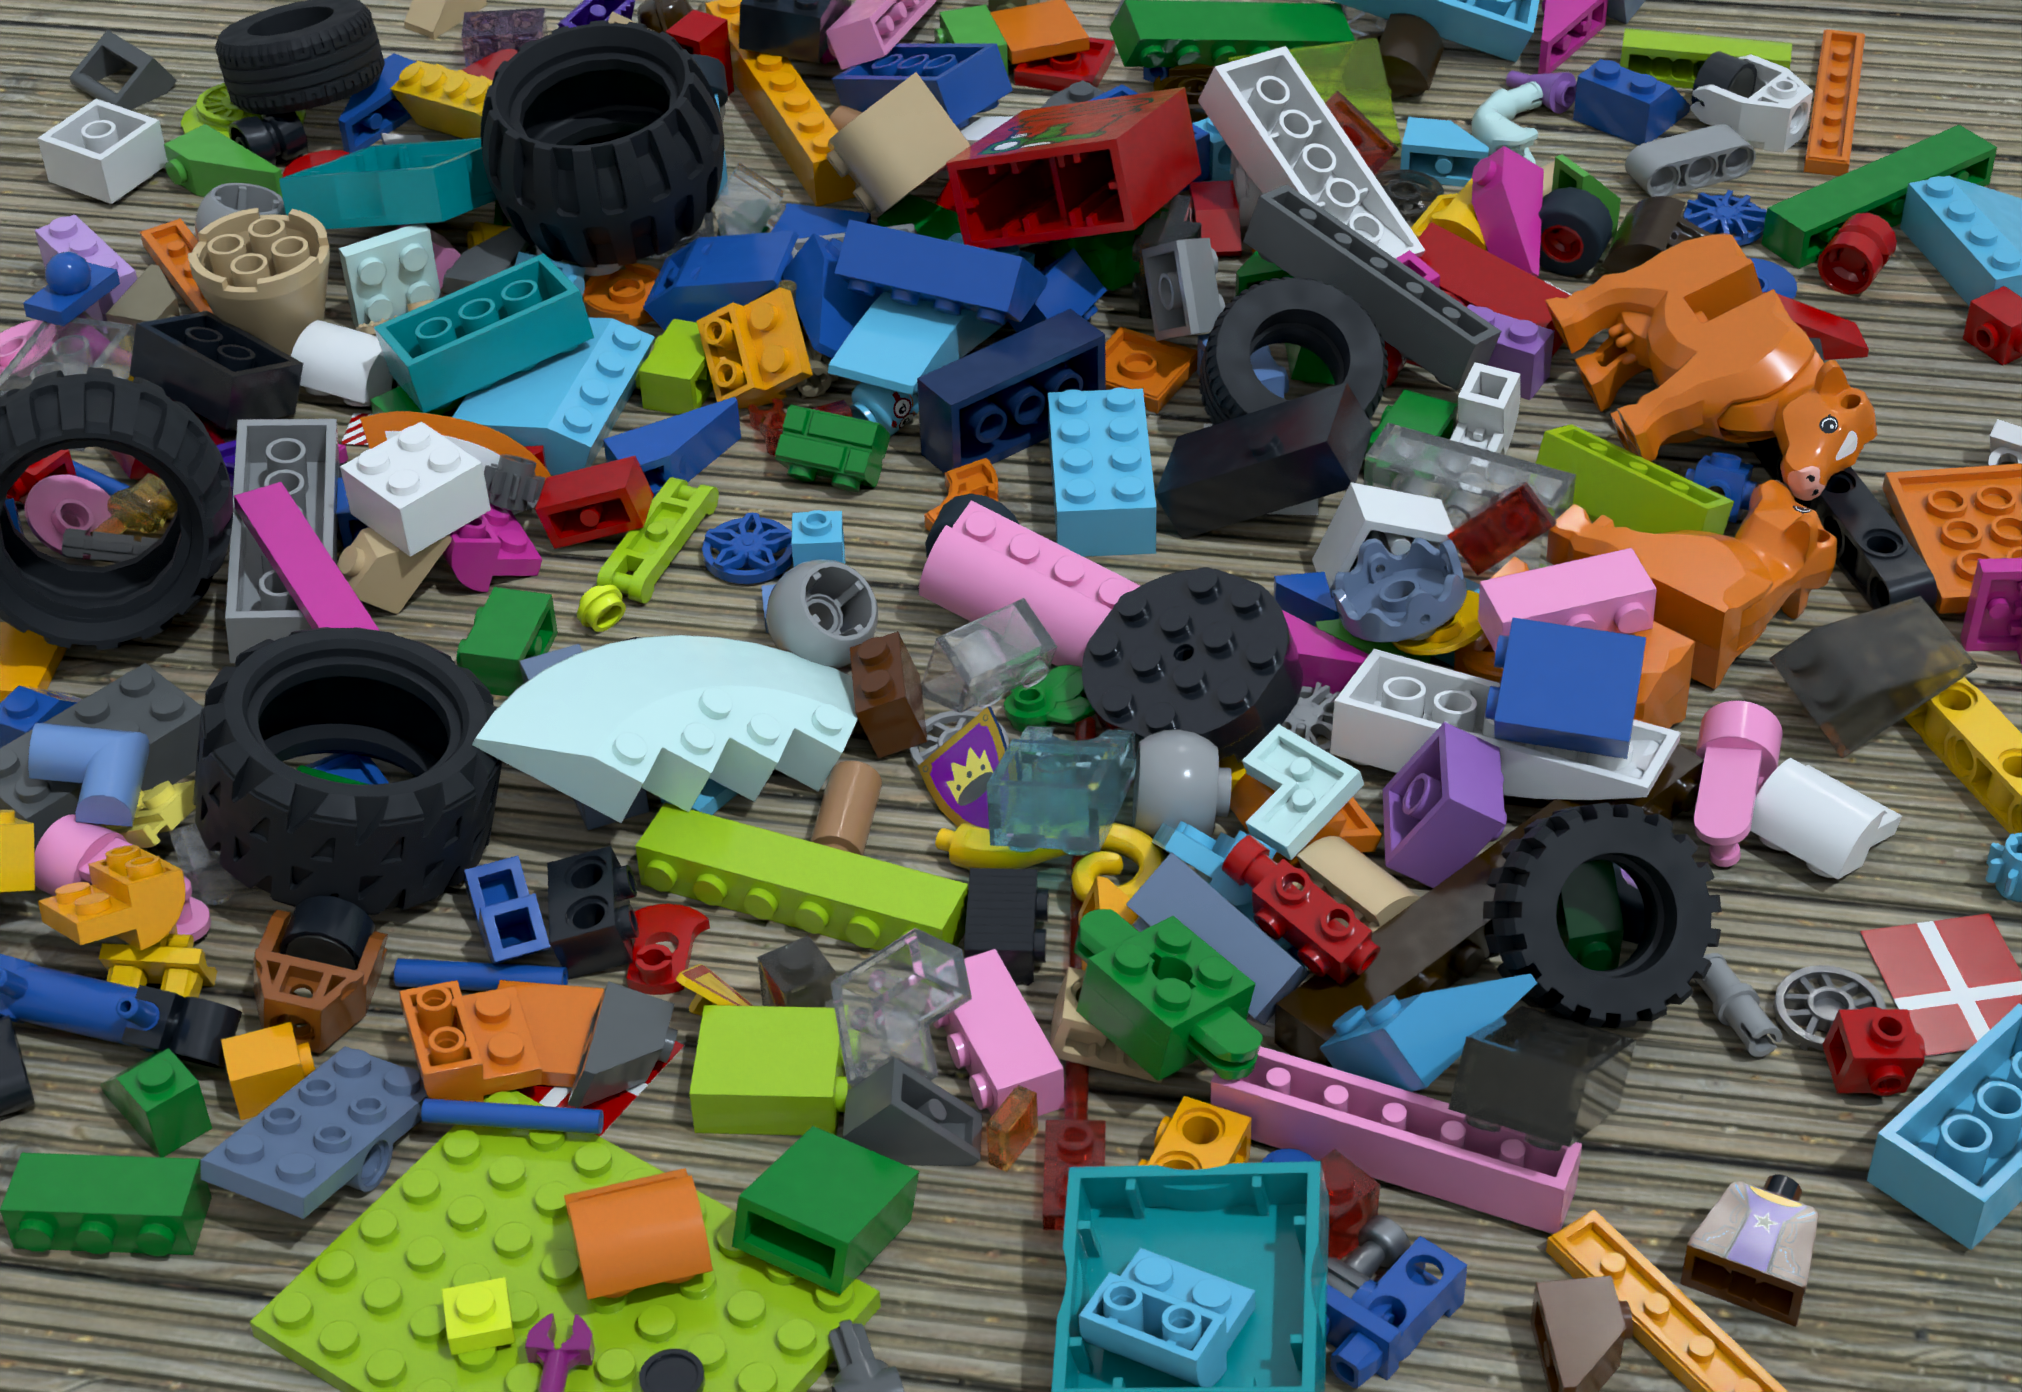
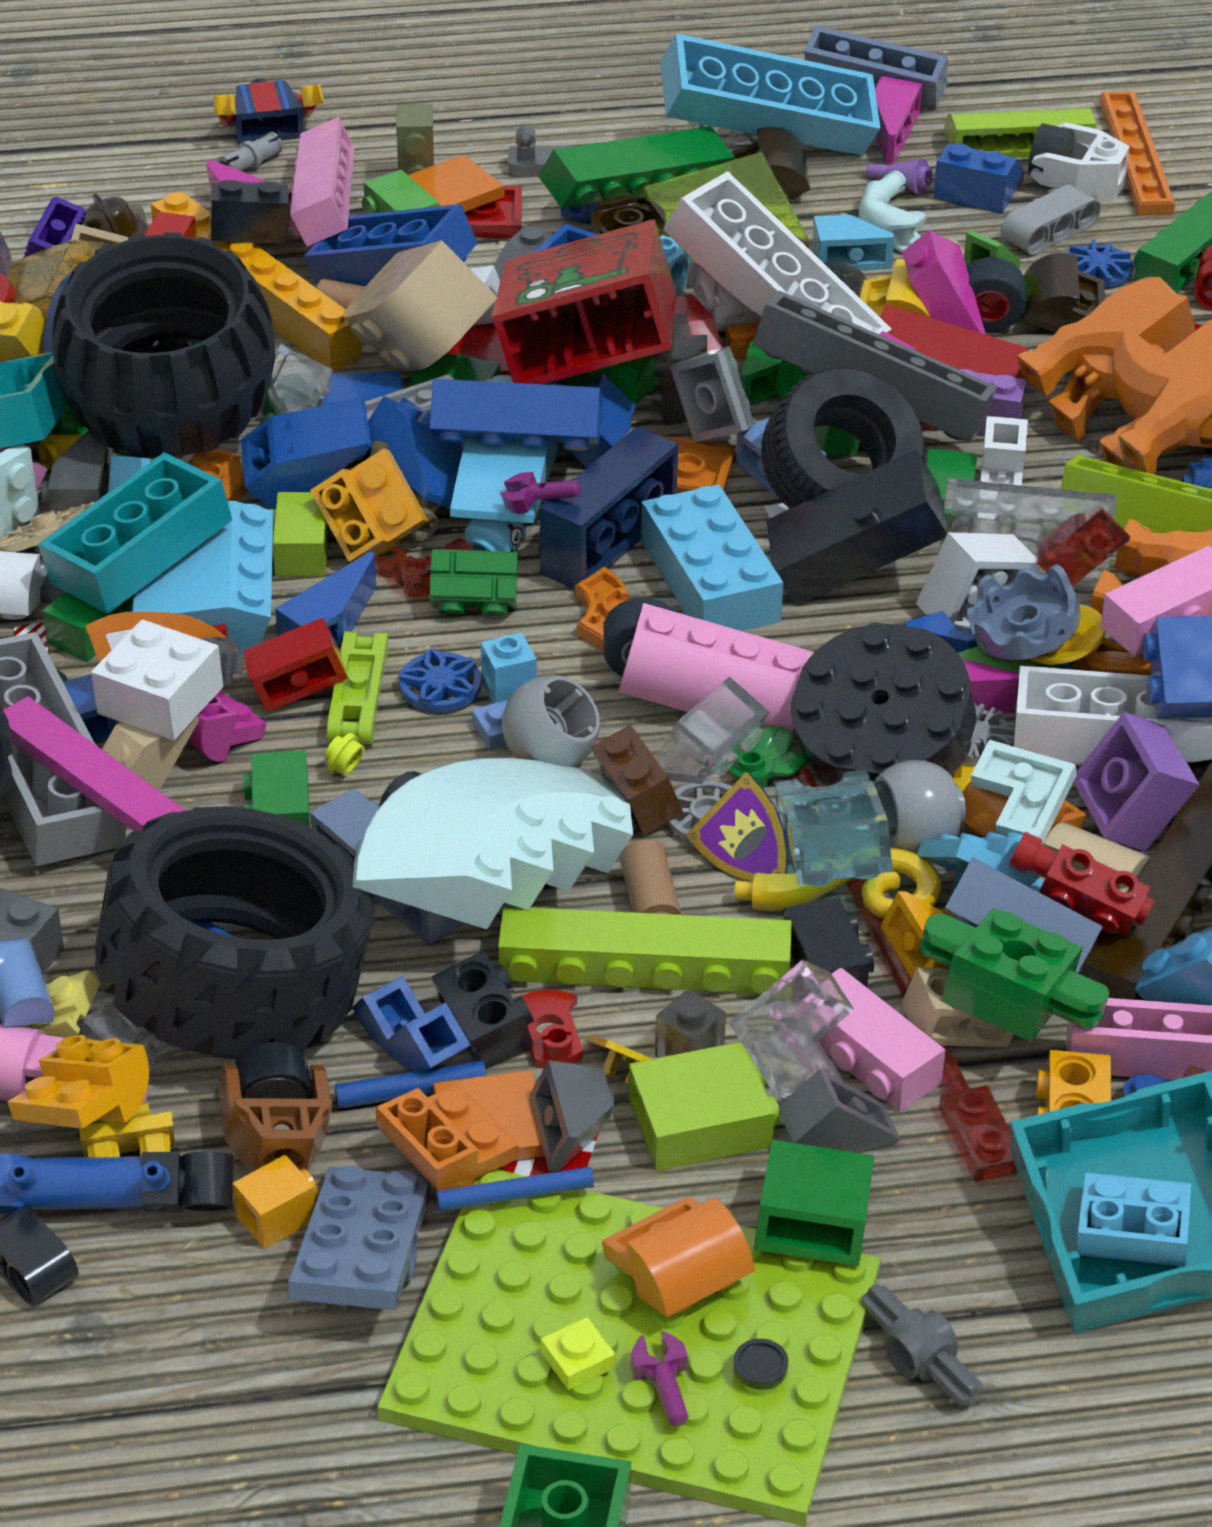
camera: 20 degrees left, 0 degrees up
(106, 1204) = (199, 1341): green brick -> none
(160, 1101) = (191, 1245): green slope -> none
(913, 355) = (524, 490): none -> magenta bar
(1012, 1128) = (919, 1107): clear orange tile -> none

